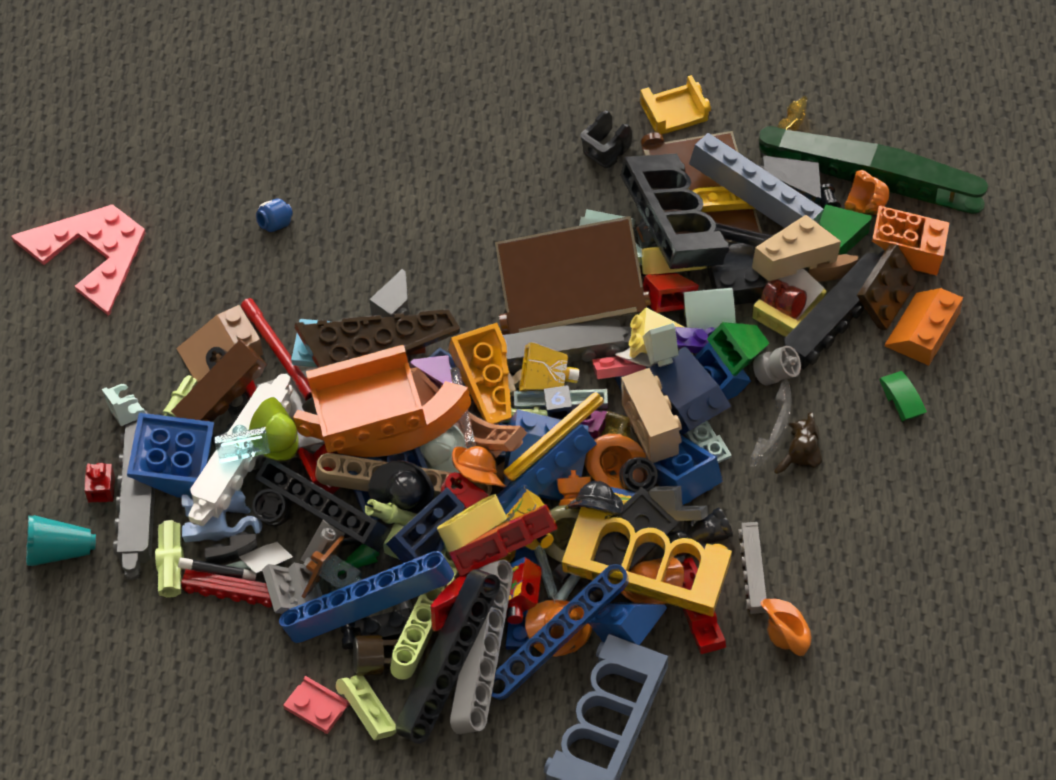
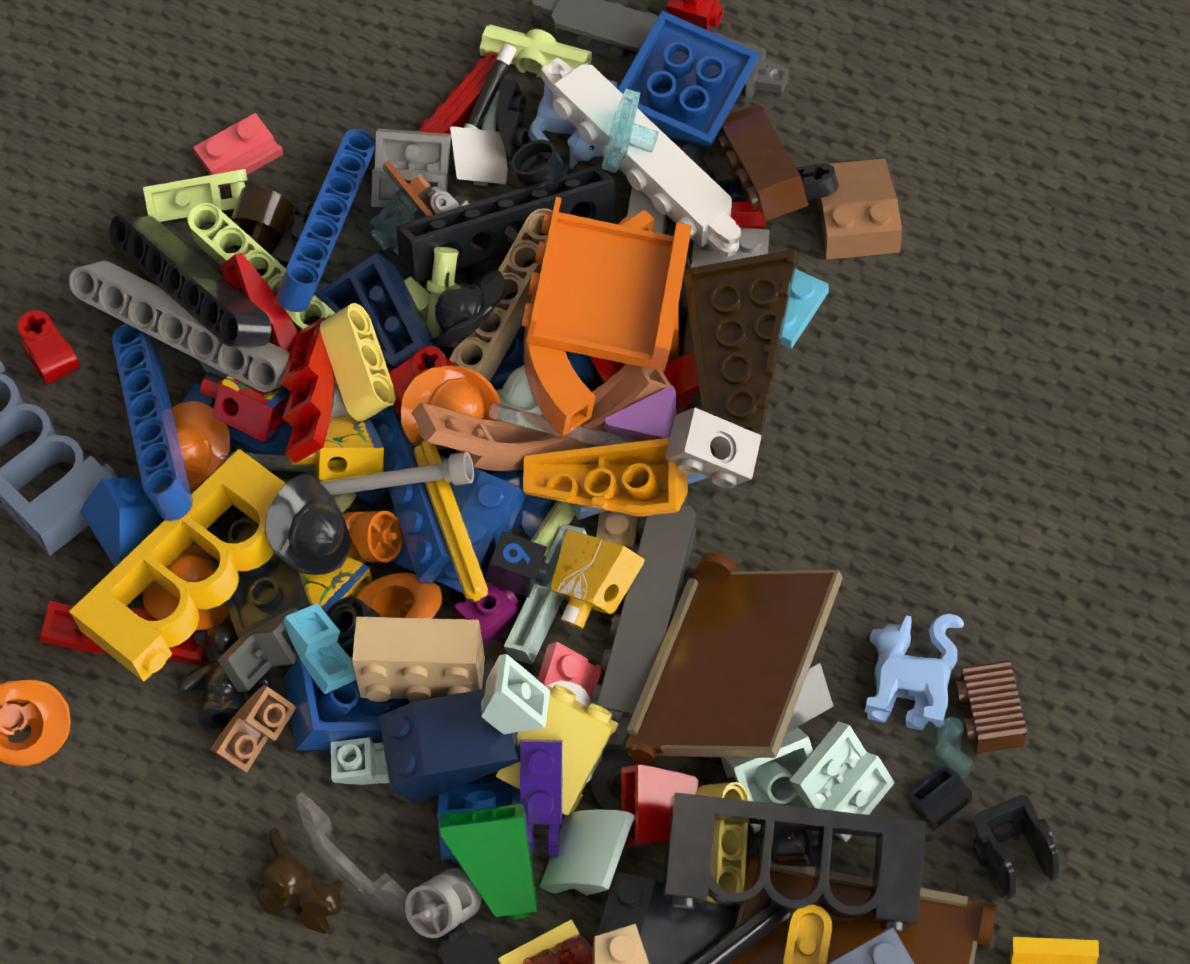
camera: 115 degrees right, 5 degrees up
(107, 232) = (1124, 137): wing -> none
(123, 409) = (800, 56): light aqua hinge -> none
(184, 388) = (793, 136): yellowish green axle -> none
(256, 317) = (892, 263): red piece -> none
(274, 215) = (1070, 338): blue head -> none
(279, 428) = (642, 183): lime hat -> none
(391, 297) = (807, 424): slope -> none
(451, 315) = (733, 448): none -> brick
(523, 742) = (47, 349): none -> red piece
(526, 178) = (991, 707): none -> reddish brown brick
(527, 211) = (910, 676): none -> light blue animal
(544, 483) = (456, 469): none -> light grey piece
(561, 191) = (949, 746): none -> clear light blue arm
(591, 183) = (940, 797): none -> black piece
(667, 472) = (317, 646): none -> medium azure slope
(718, 495) = (251, 727): none -> medium nougat slope
(753, 566) = (139, 731): light grey piece -> none

